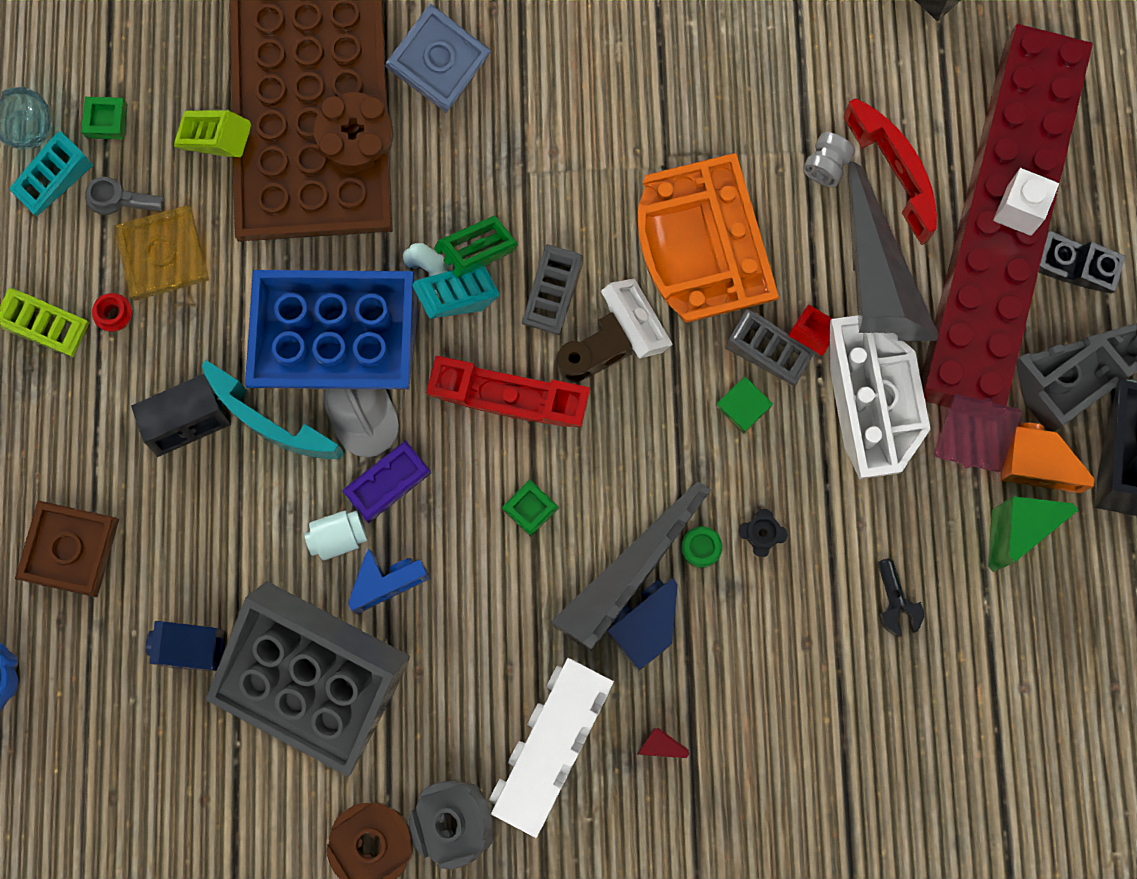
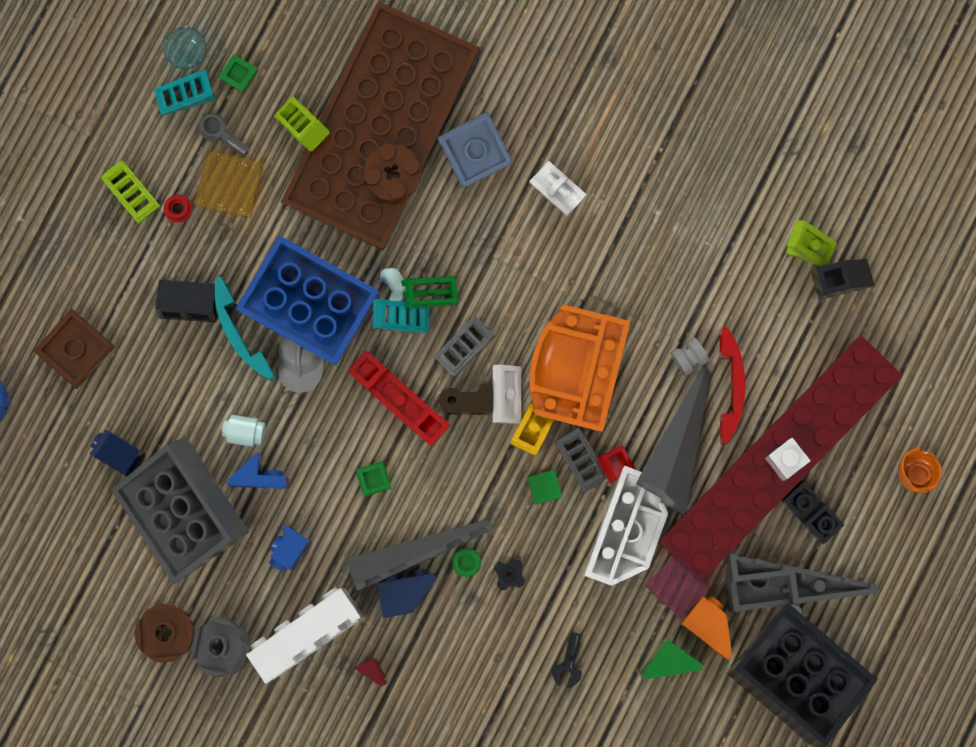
camera: 30 degrees right, 5 degrees up
(386, 481) = (293, 414): dark purple plate -> none
(471, 650) = (288, 549): none -> blue brick
(561, 49) = (557, 188): none -> white hips
(693, 345) = (531, 432): none -> yellow slope

